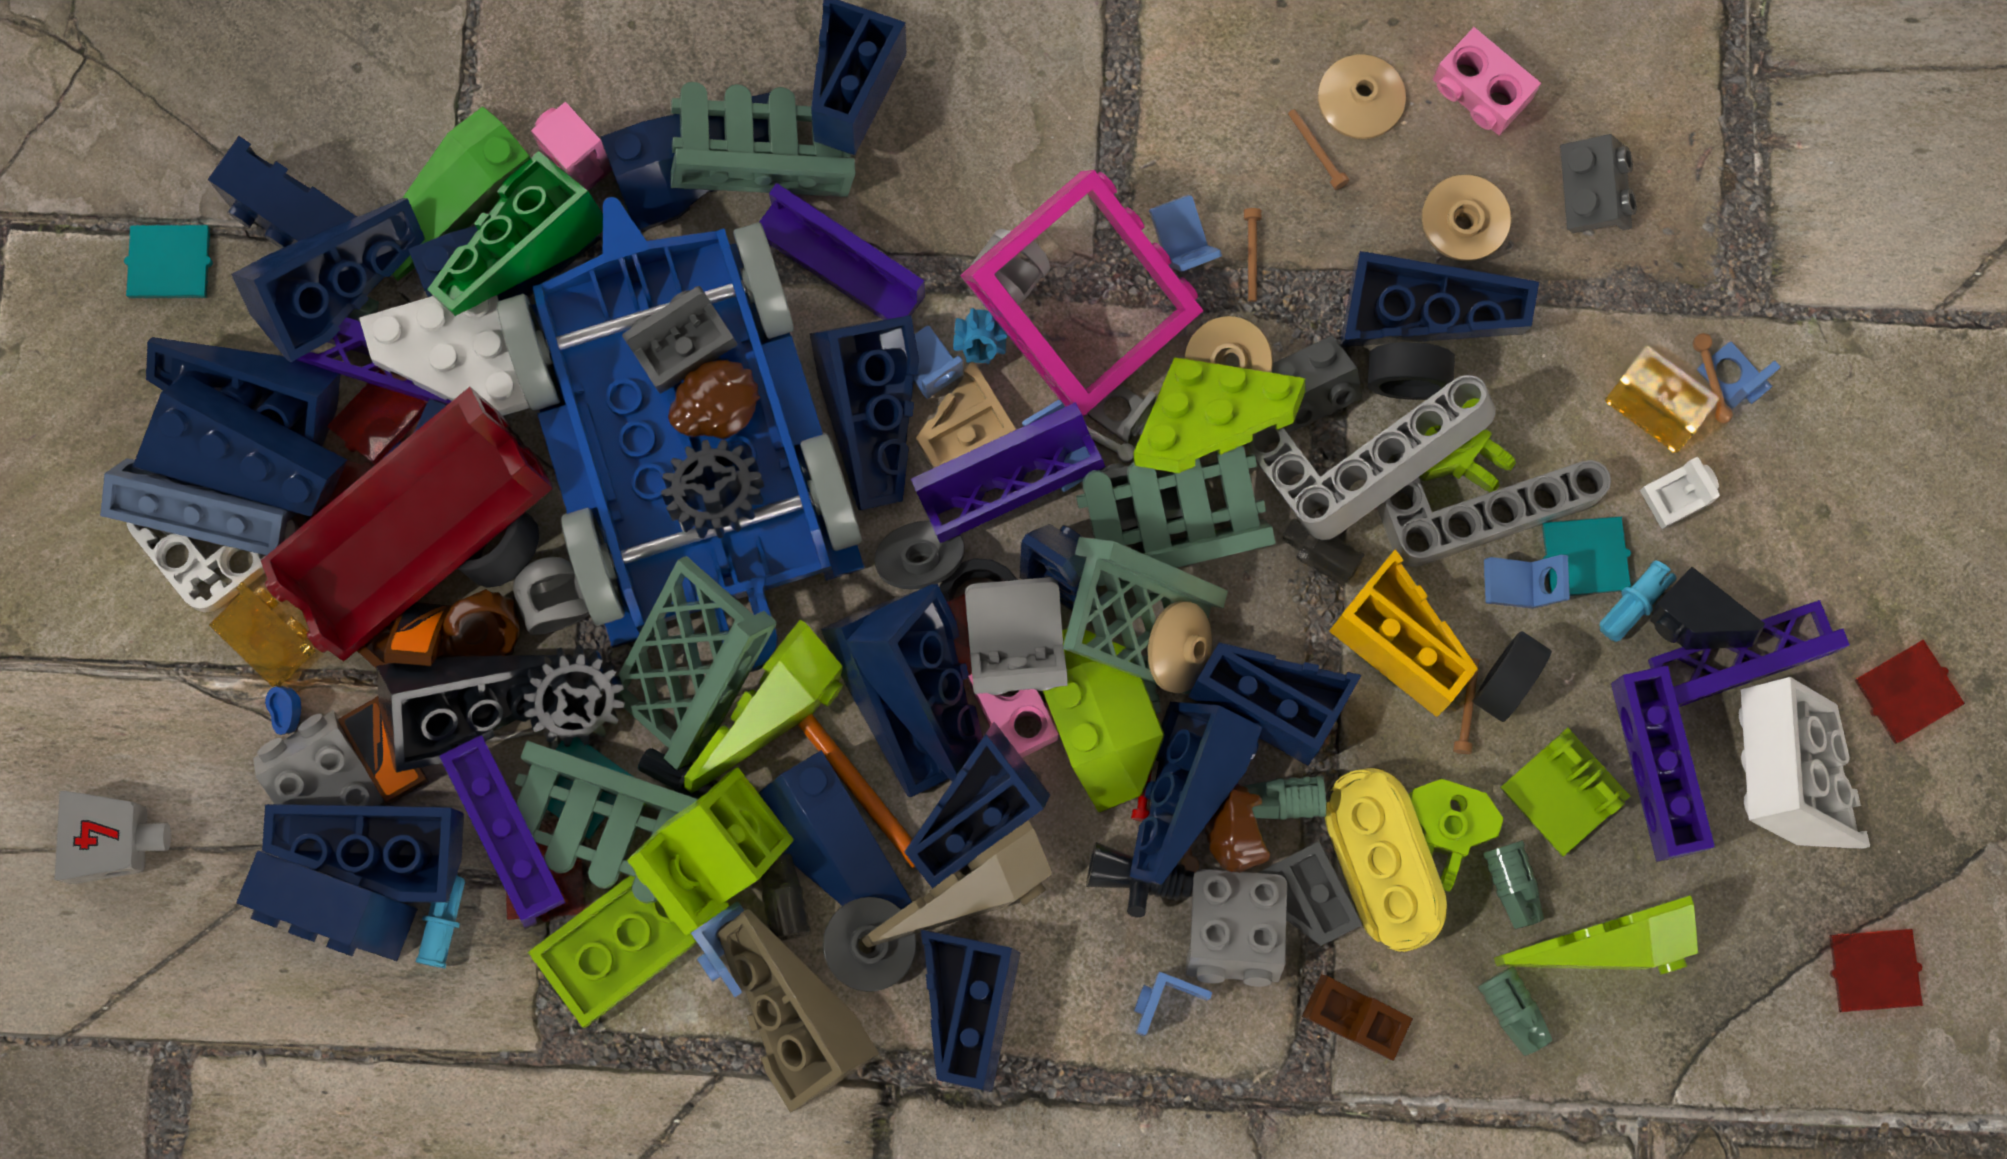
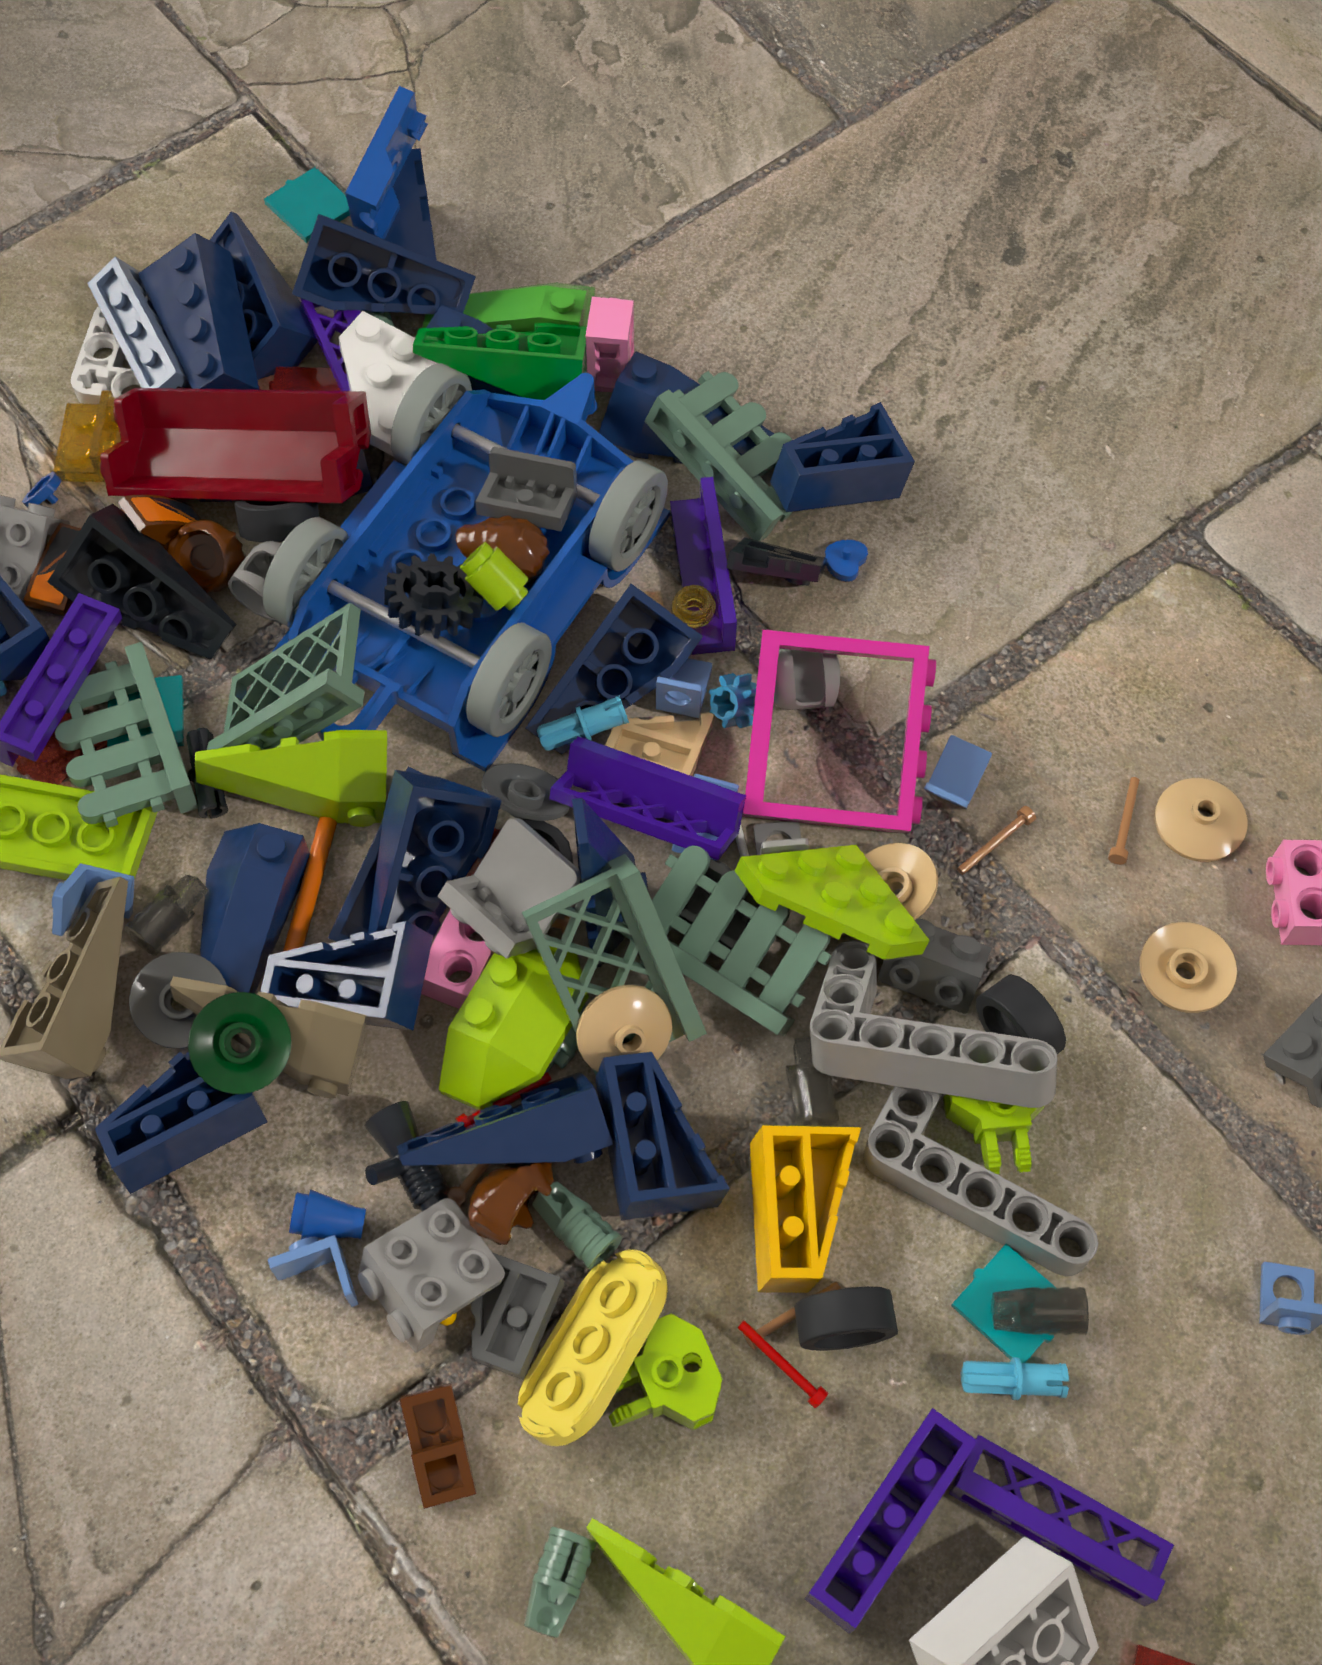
camera: 50 degrees right, 15 degrees down
(260, 200) = (371, 190): none -> blue piece
(583, 679) = (221, 641): black gear -> none
(710, 851) = (150, 815): lime bracket -> none
(747, 432) = (495, 577): none -> lime brick
(870, 284) = (694, 597): none -> clear yellow plate
(886, 200) = (777, 561): none -> black wing
(901, 466) = (582, 724): none -> medium azure axle
(921, 145) = (845, 558): none -> blue piece
(989, 930) = (212, 1049): none -> dark green dish
(1129, 969) = (325, 1216): none -> blue cone
(1431, 302) = (1094, 995): dark blue wedge -> none
(1515, 884) = (672, 1483): sand green hinge -> none
(1522, 582) = (936, 1264): medium blue bracket -> none
(1536, 740) = (816, 1396): none -> red piece
(1565, 792) = (794, 1460): lime hinge -> none
(1612, 543) = (1041, 1310): none -> clear smoke hinge
(1662, 399) = (1205, 1250): clear yellow bracket -> none
(1681, 492) = (1143, 1334): white bracket -> none
(1701, 344) = (1286, 1247): medium nougat hinge -> none
(1704, 616) = (1056, 1445): black slope -> none

